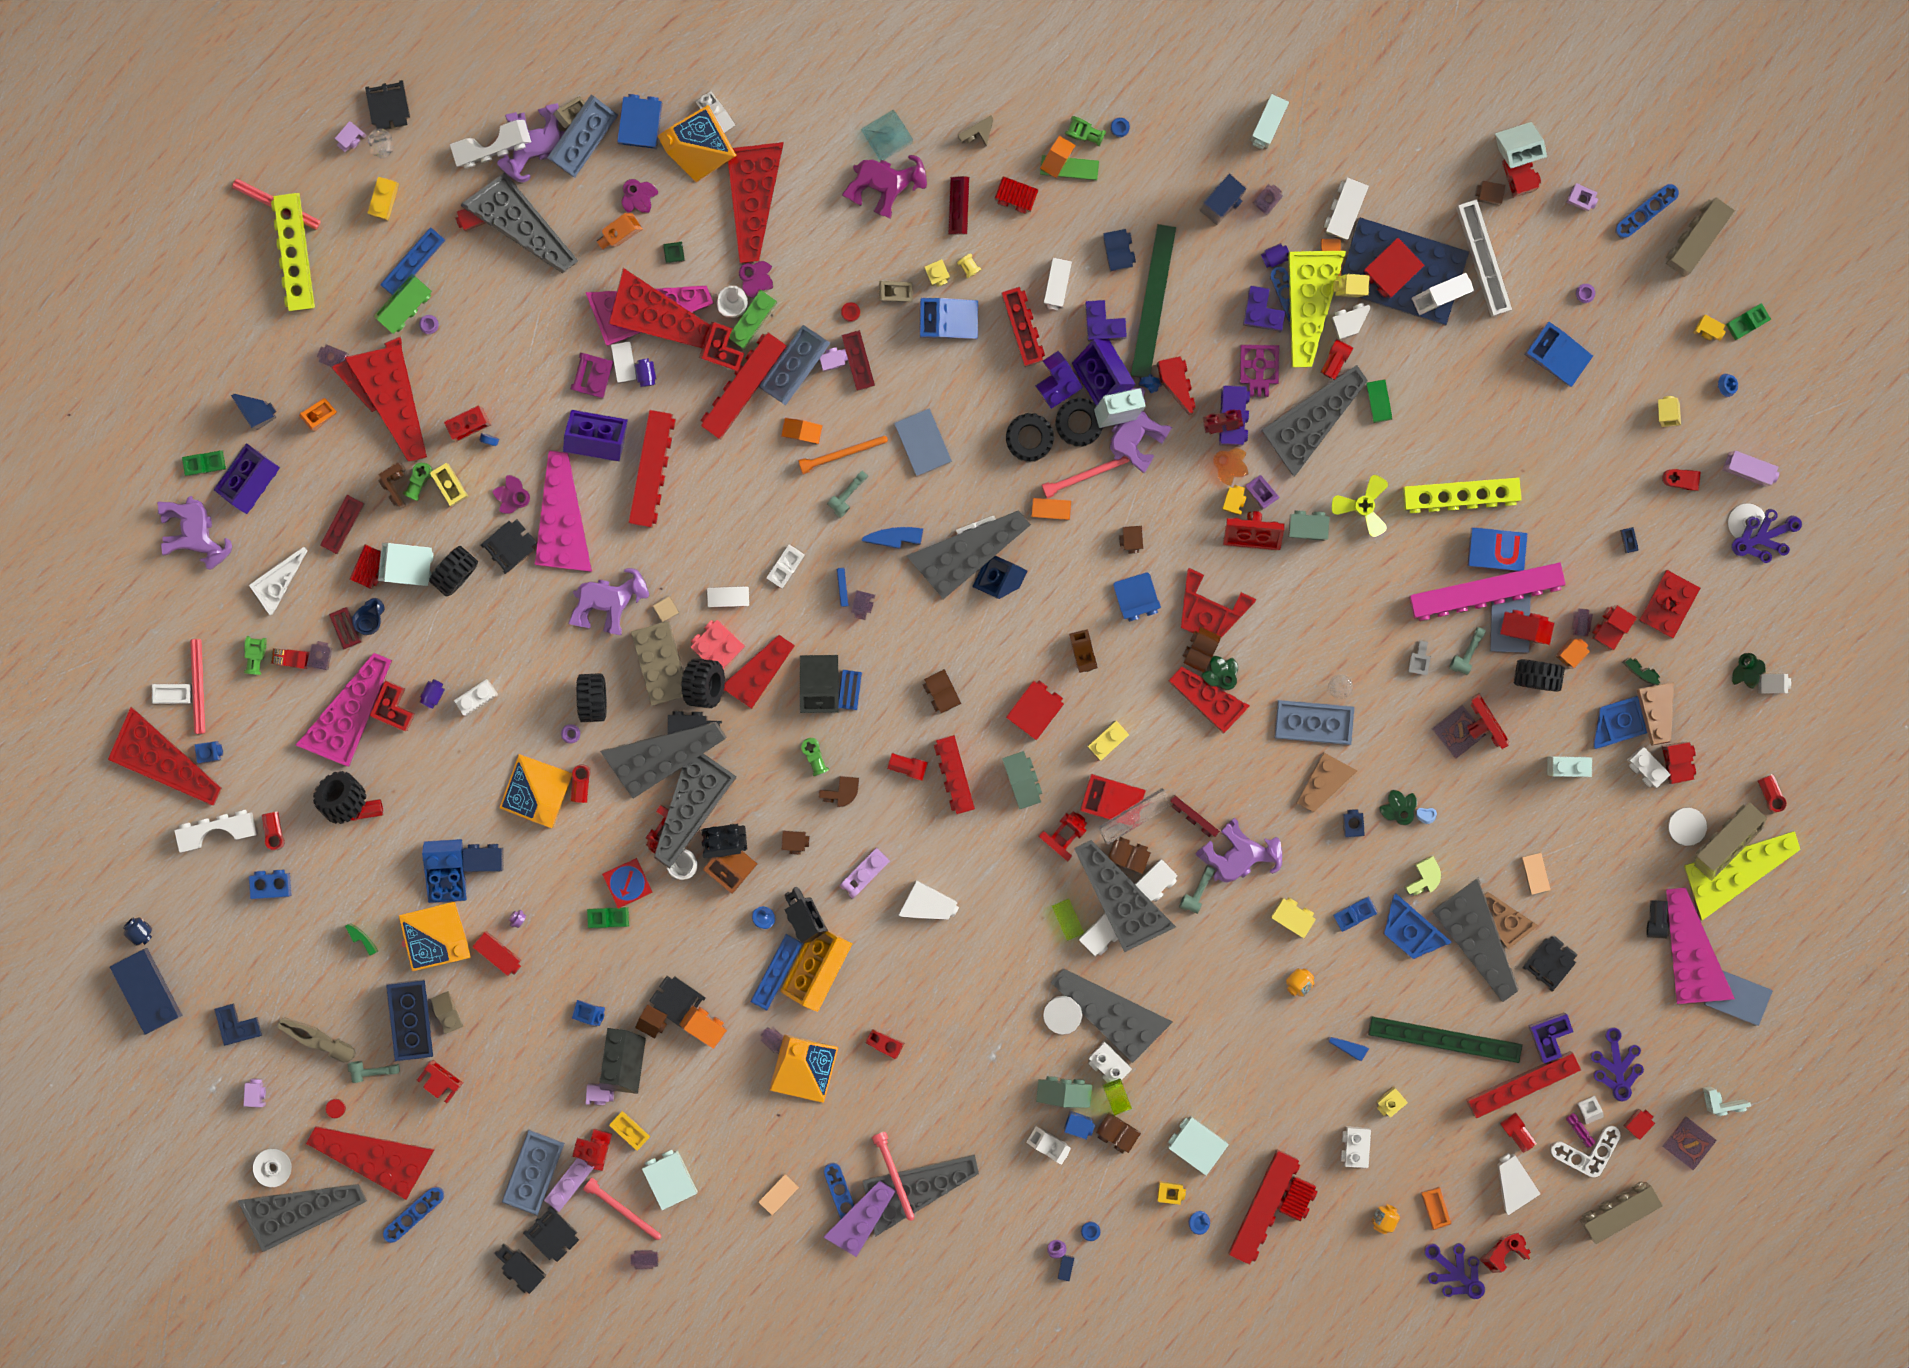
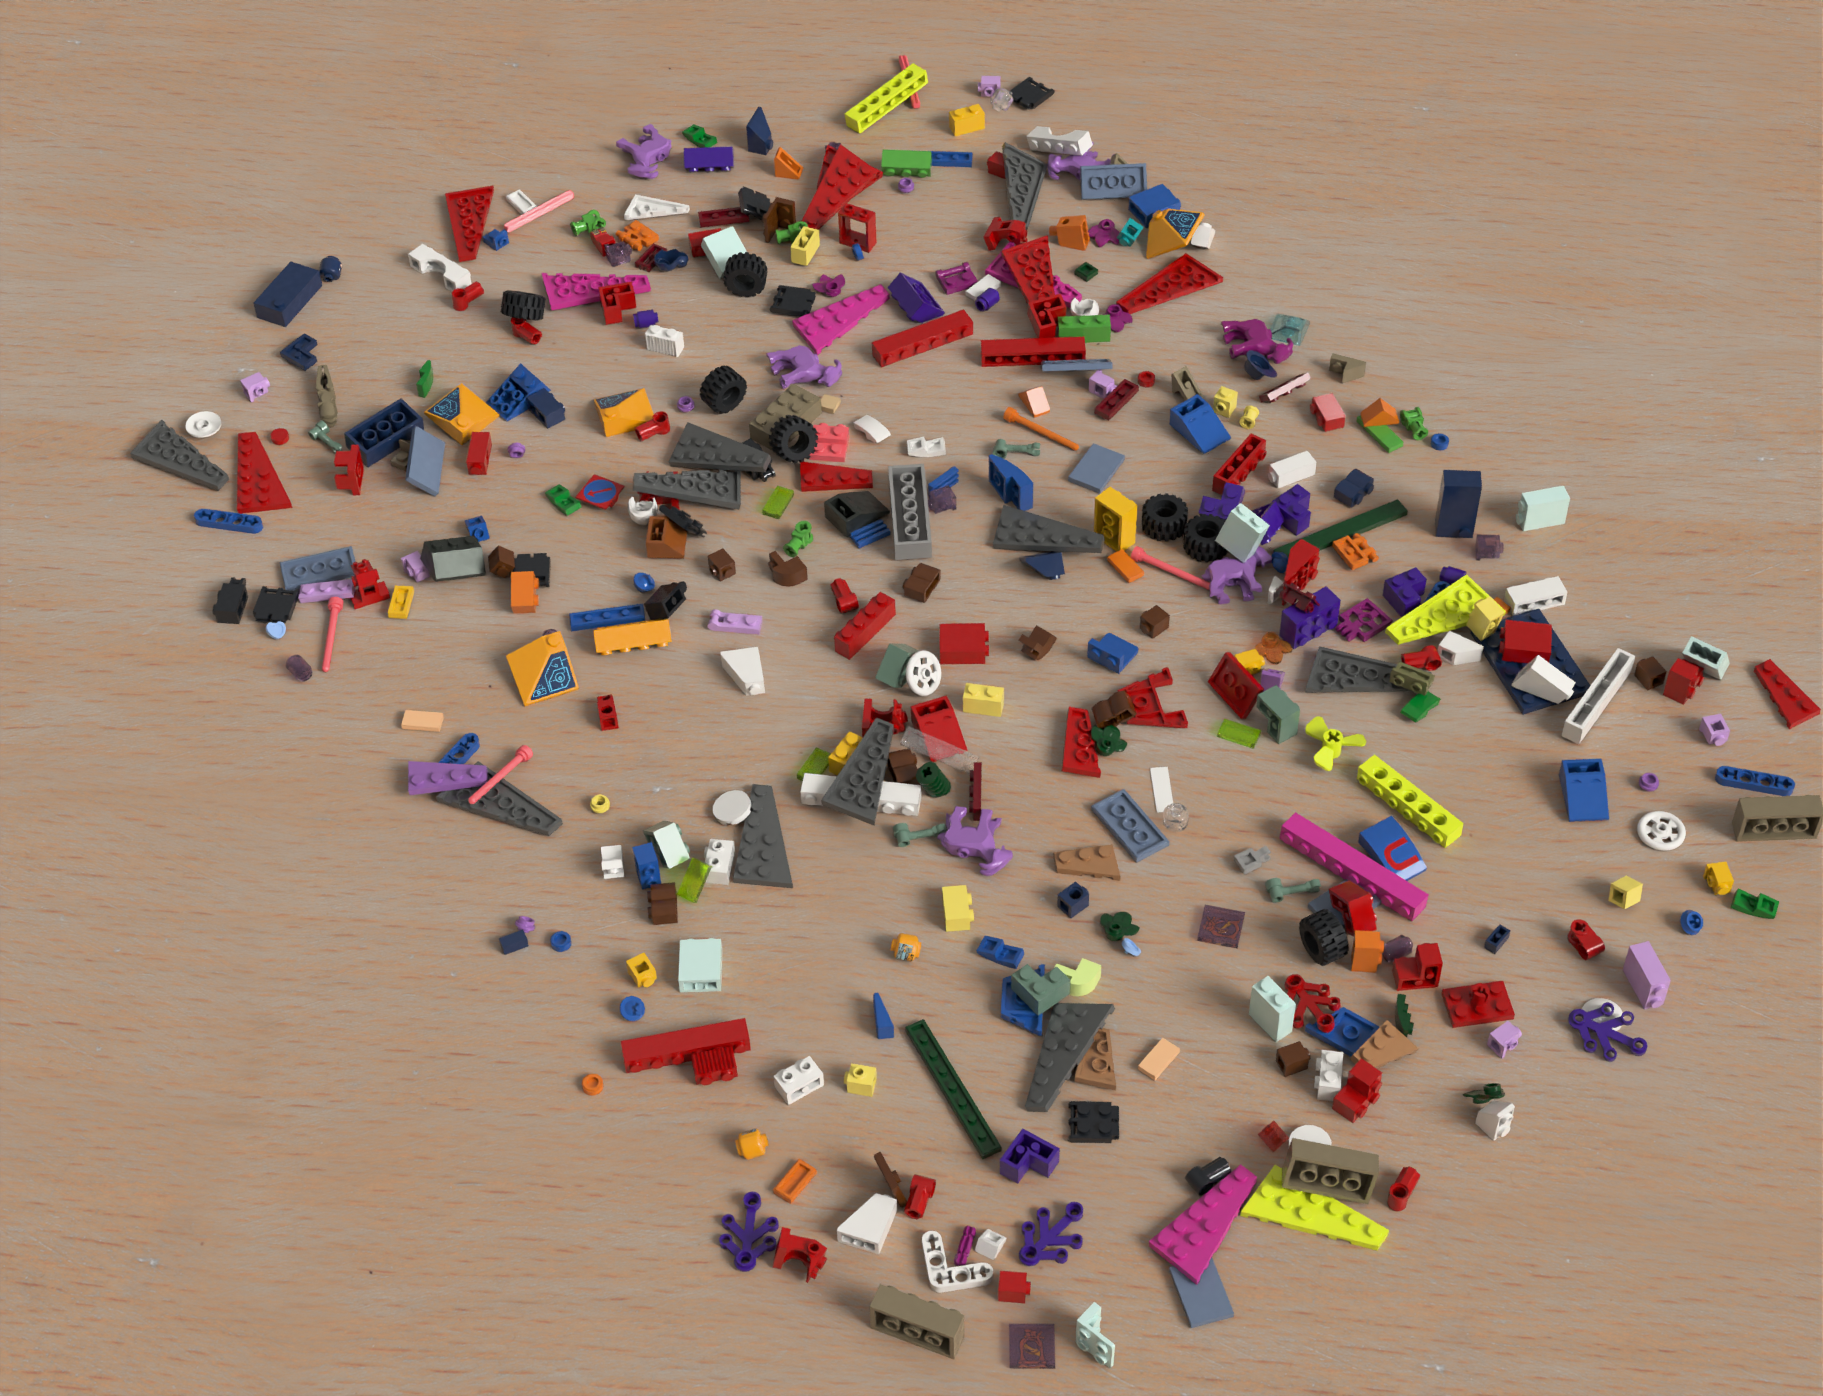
camera: 55 degrees right, 40 degrees down
(270, 889) = (424, 314): blue brick -> none
(304, 614) = (640, 233): none -> orange plate
(352, 486) = (753, 203): none -> black plate
(475, 1008) = (425, 461): none -> sand blue tile
(583, 1251) = (276, 630): none -> light blue piece
(585, 283) = (1005, 230): none -> red tile
(665, 174) = (1128, 235): none -> teal brick
(669, 1179) = (379, 646): light aqua brick -> none
(752, 739) = (778, 502): none -> clear neon green tile
(858, 643) = (909, 512): none -> light grey brick
(921, 208) = (1258, 366): none -> dark blue piece
(977, 1107) = (599, 804): none -> light yellow plate
(1012, 489) = (1115, 519): none -> yellow brick
(1048, 770) = (923, 673): none -> white plate
(1081, 889) = (843, 752): none -> yellow brick
(1164, 846) = (933, 780): none -> dark green piece
(1176, 413) = (1275, 589): none -> white slope
(1182, 314) = (1351, 553): none -> orange plate
(1242, 1294) = (592, 1084): none -> orange tile
(1293, 564) = (1239, 733): none -> clear neon green tile
(1298, 668) = (1161, 787): none -> white sticker
(1356, 390) = (1411, 678): none -> olive bracket
(1425, 922) = (1038, 991): none -> sand green brick
(1486, 723) = (1249, 930): red plate -> none
(1496, 1147) = (891, 1178): none -> reddish brown plate
(1523, 1084) = (966, 1168): red brick -> none
(1576, 728) = (1296, 985): none -> red plant
(1593, 105) = (1790, 699): none -> red wing
(1613, 780) = (1292, 1058): none -> reddish brown brick
(1622, 338) = (1657, 843): none -> white plate
(1662, 847) = (1273, 1136): none -> clear red tile
(1715, 614) = (1504, 1039): none -> lavender brick

